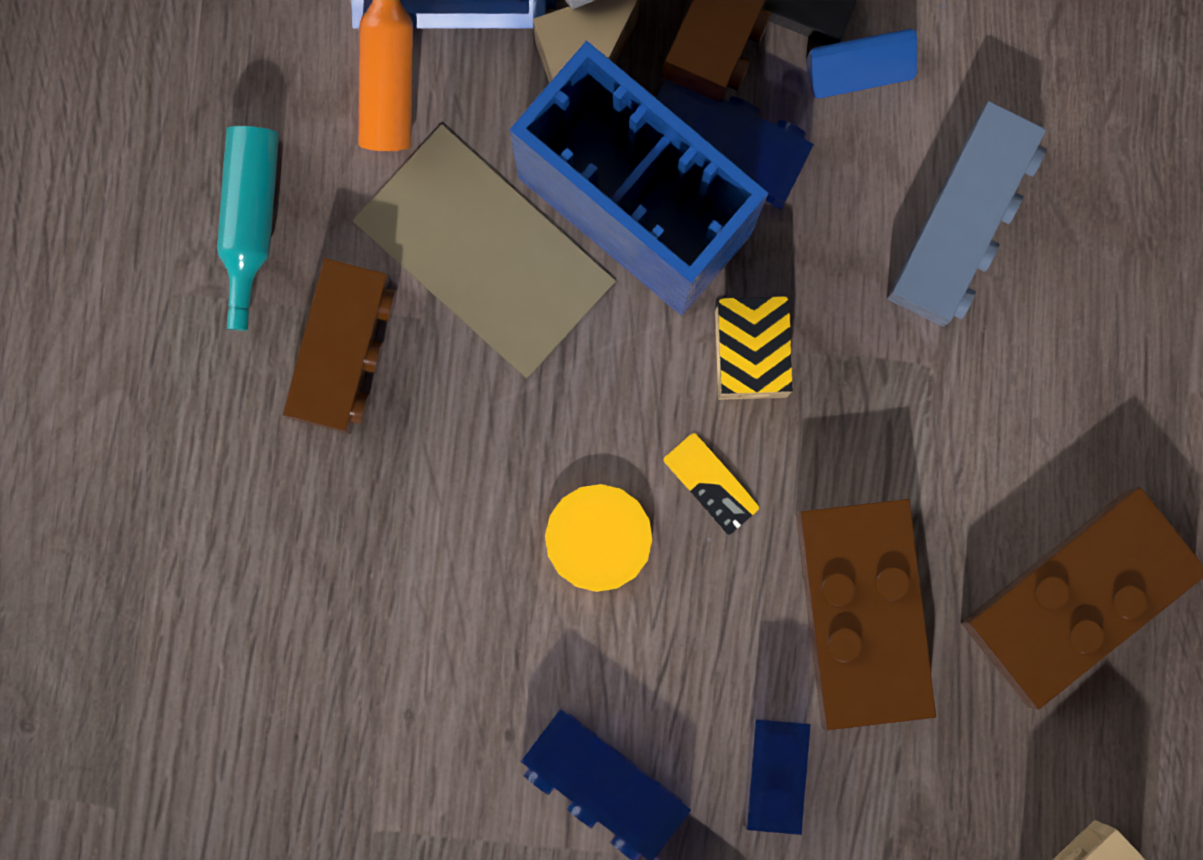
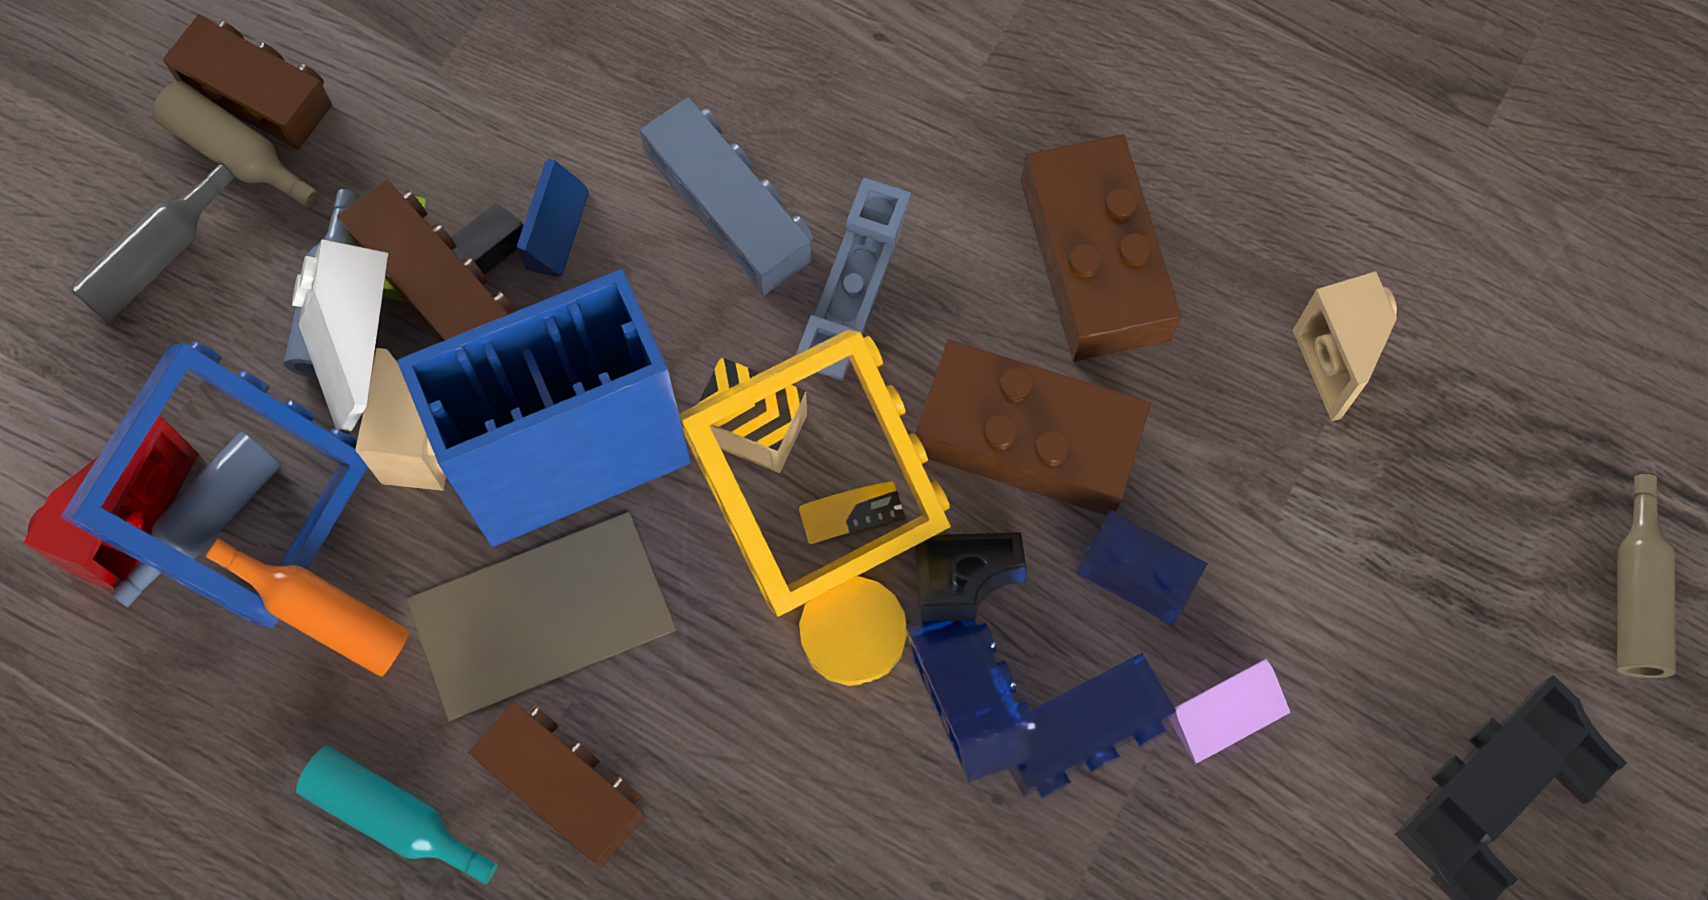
camera: 65 degrees left, 15 degrees down
(581, 672) = (972, 695): none -> clear blue brick
(696, 612) = (962, 569): none -> black tile
(775, 363) = (726, 491): none -> yellow window
(937, 379) = (858, 267): none -> sand blue slope

